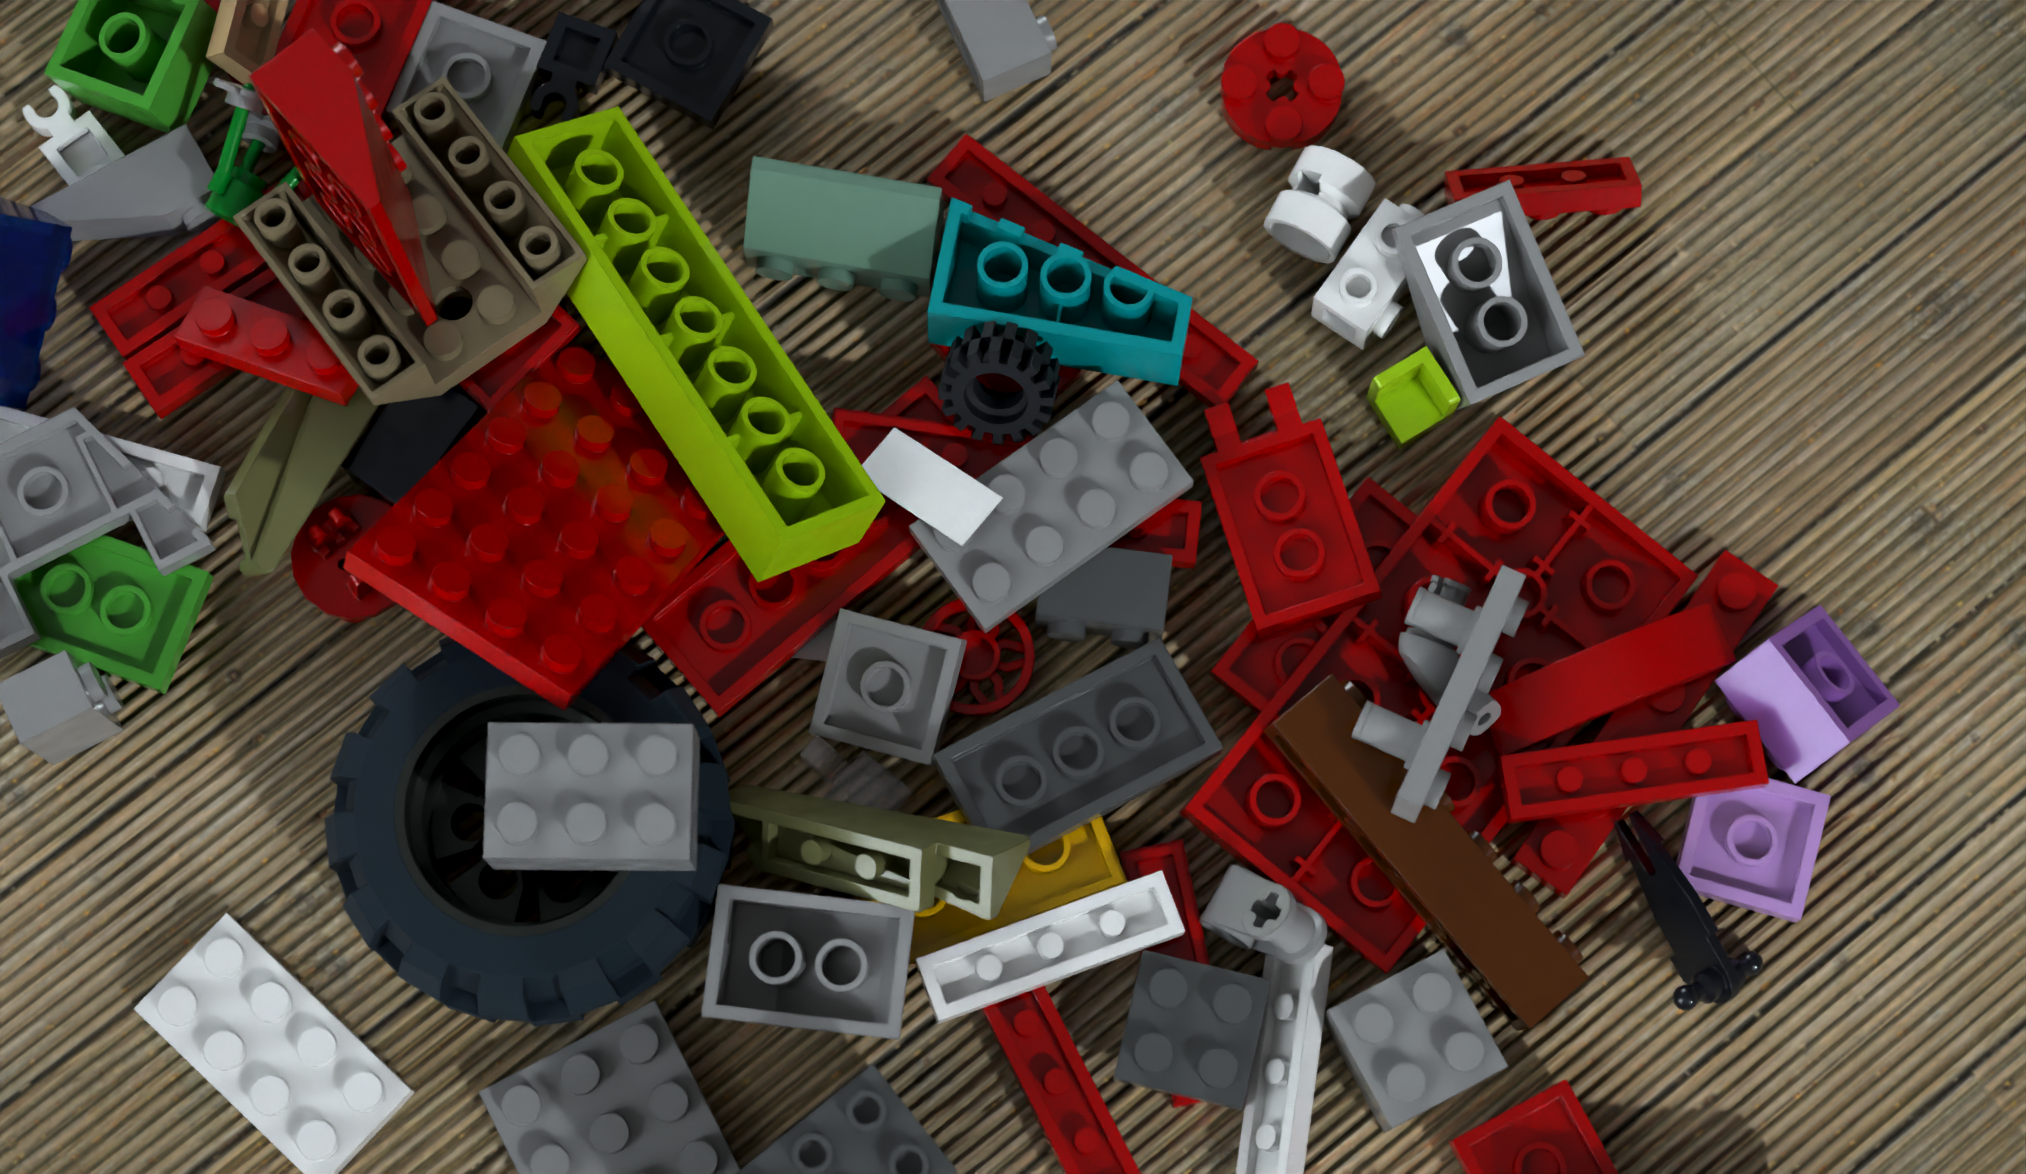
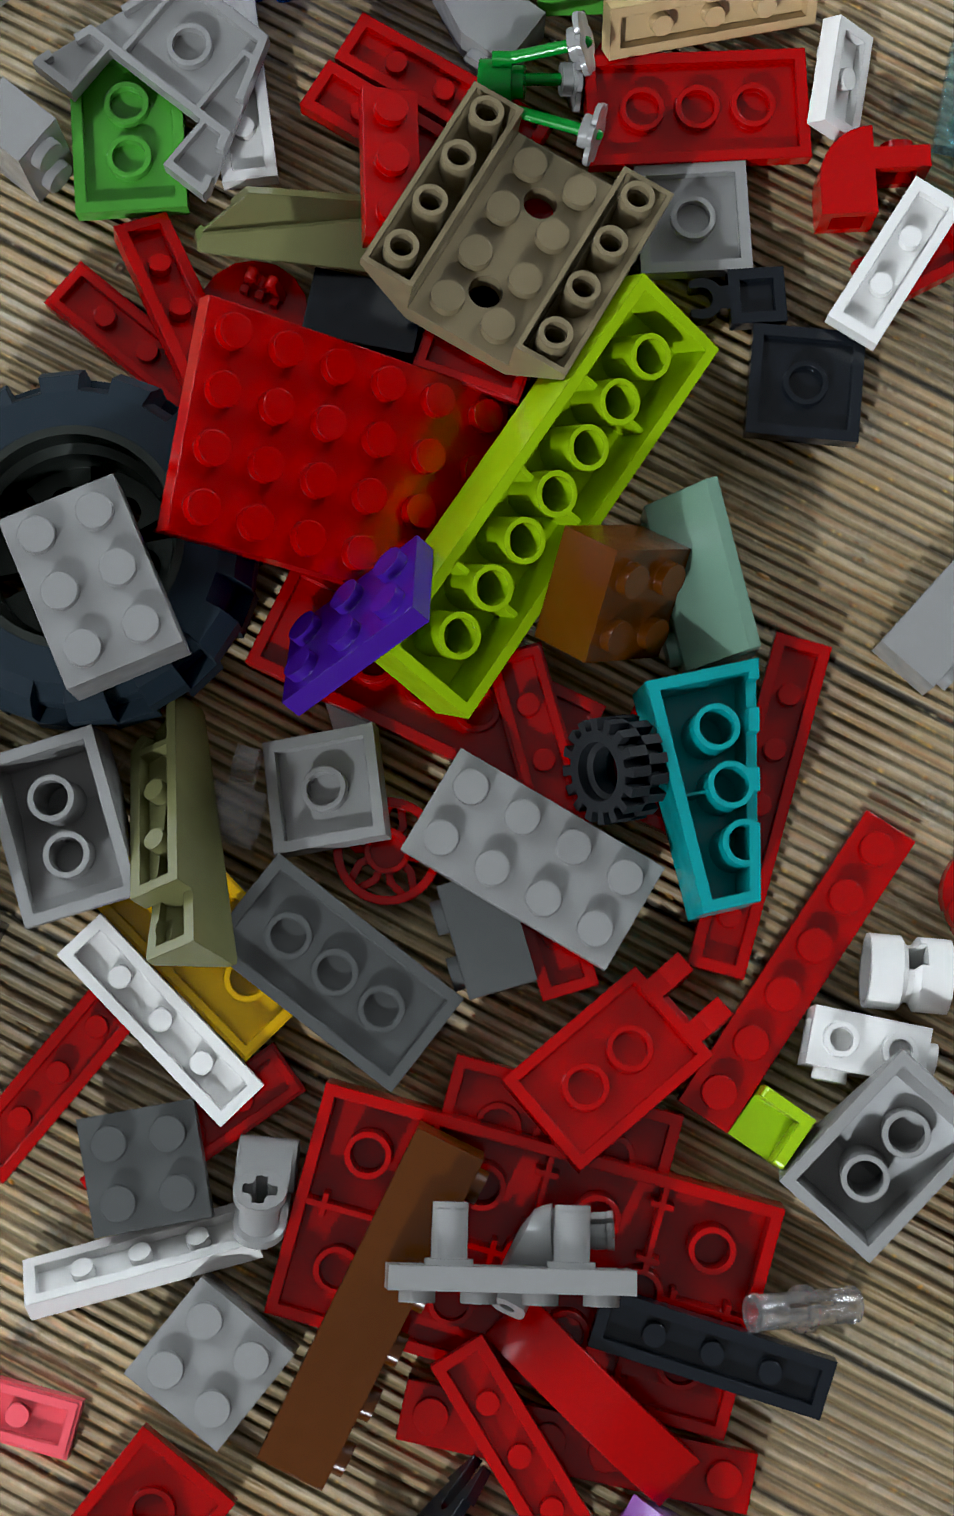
camera: 65 degrees right, 5 degrees up
(307, 626) = (163, 282): none -> red plate
(322, 689) = (114, 328): none -> red tile
(347, 159) = (544, 145): red slope -> none
(744, 565) = (358, 624): none -> dark purple plate
(820, 310) = (612, 592): none -> reddish brown brick
(930, 486) = (501, 749): white sticker -> none
(1269, 309) = (796, 971): none -> red plate
(1602, 443) = (802, 1309): none -> clear pin
(1610, 542) = (715, 1353): none -> black plate

